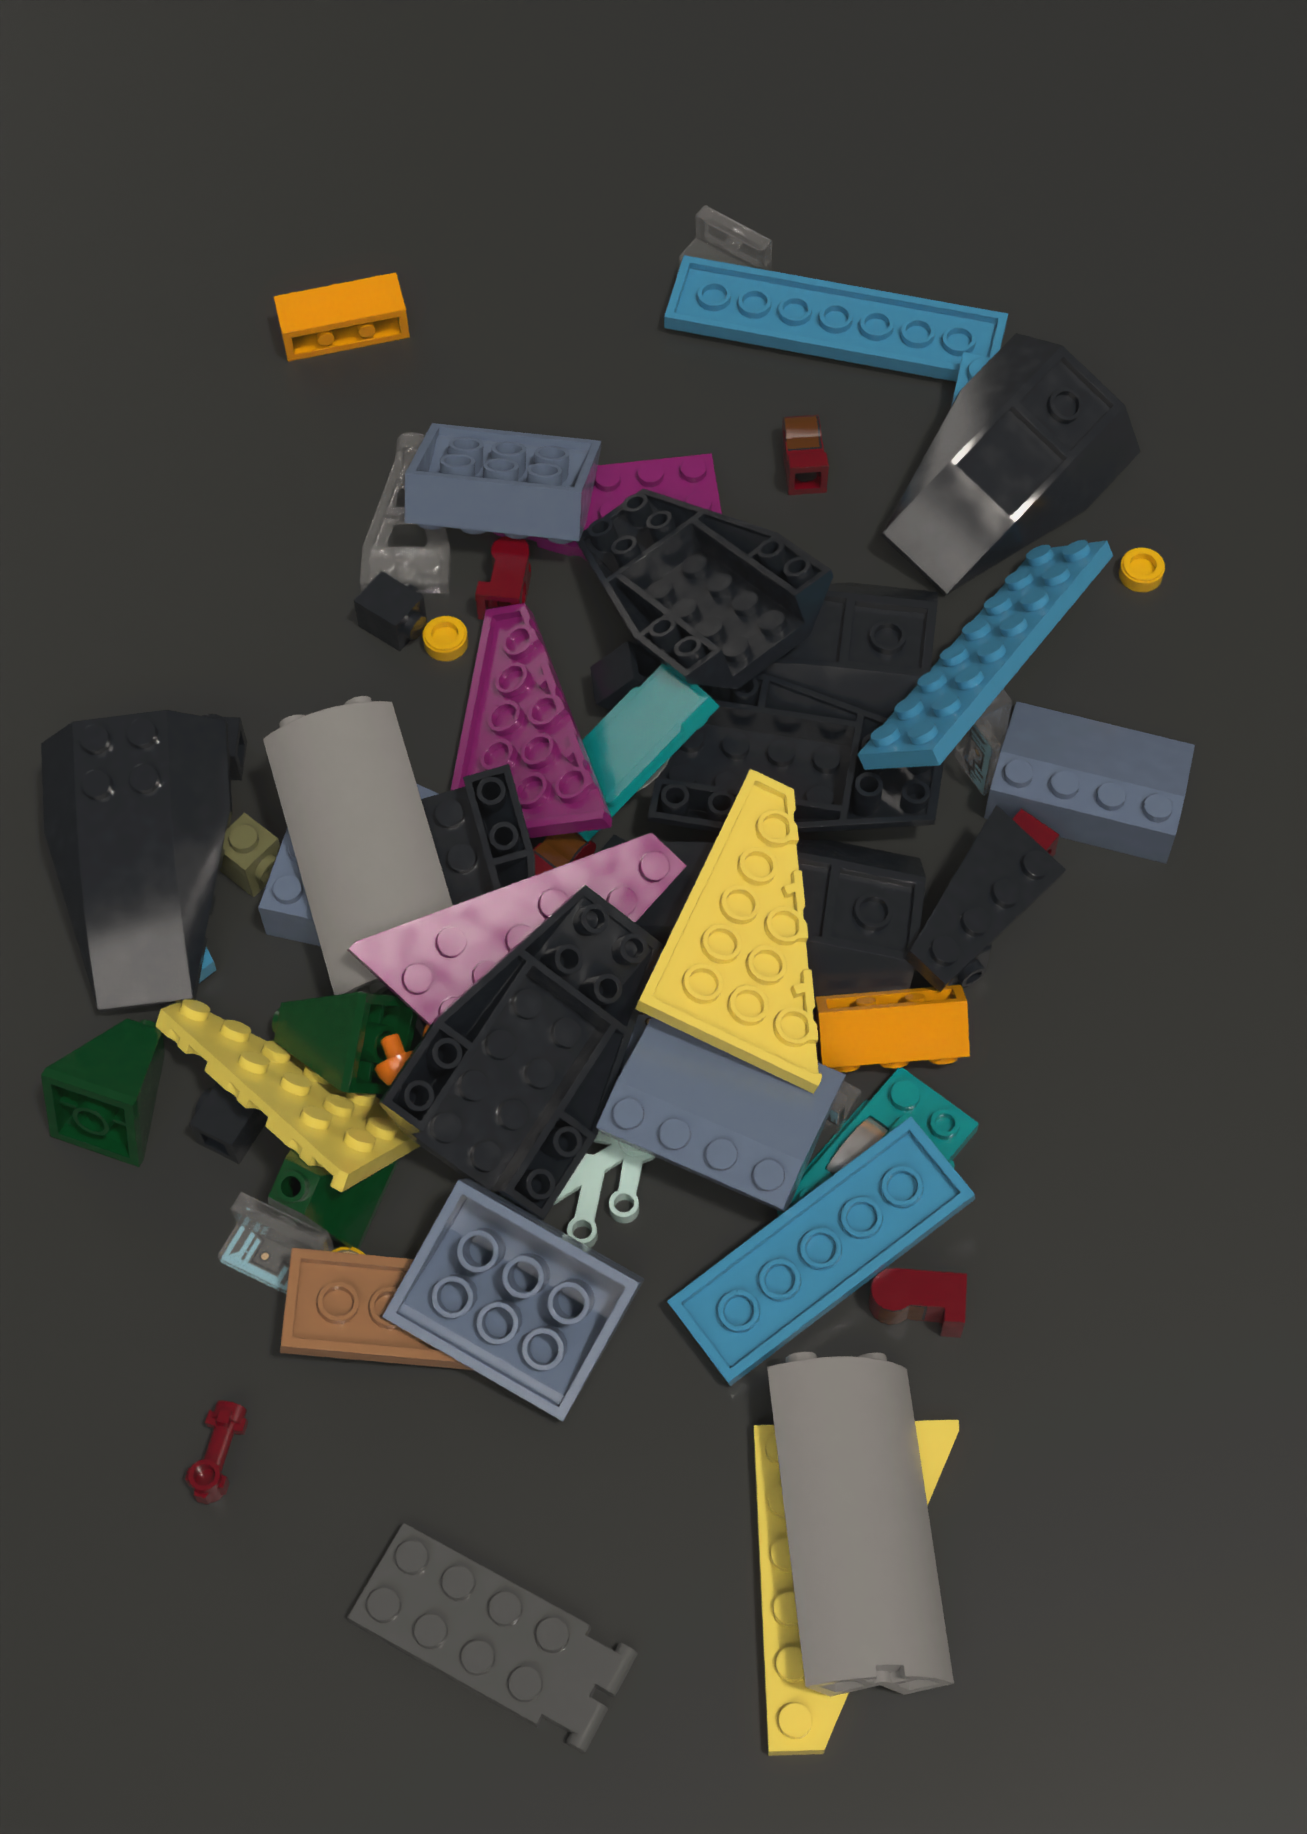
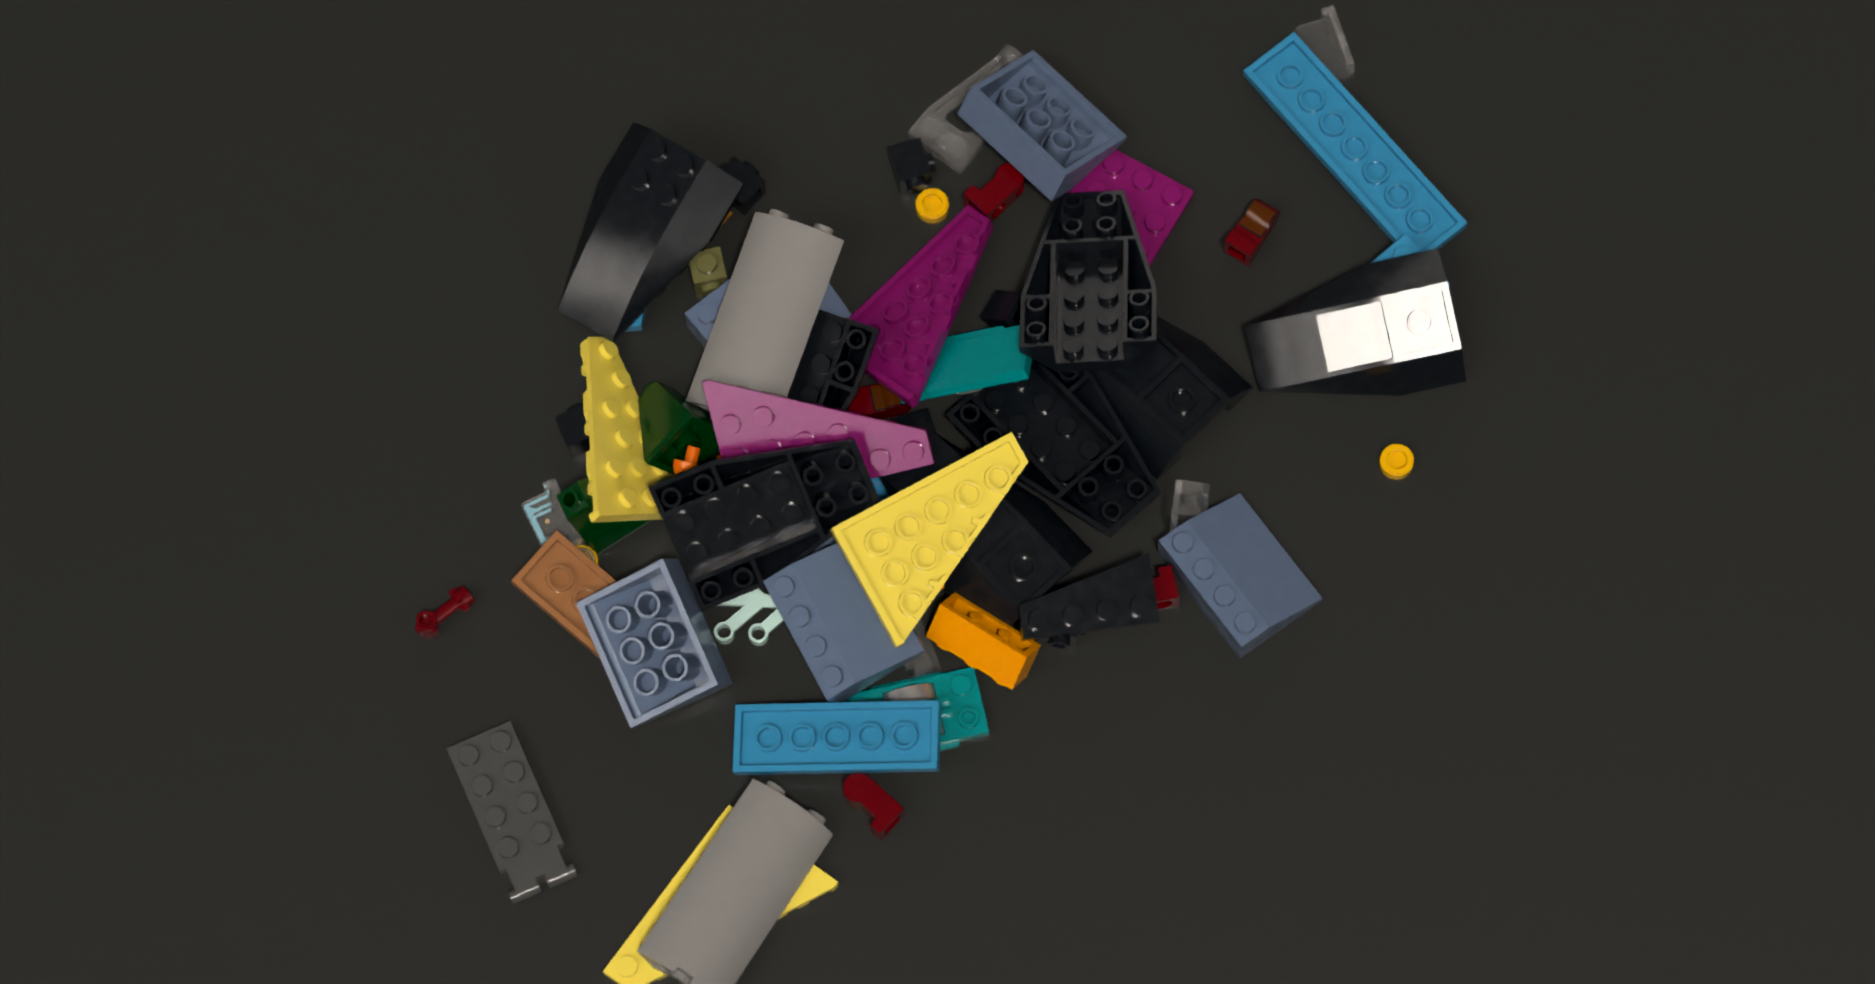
camera: 40 degrees right, 10 degrees up
(107, 1091) = (530, 364): dark green slope -> none
(985, 656) = (1228, 454): dark azure plate -> none

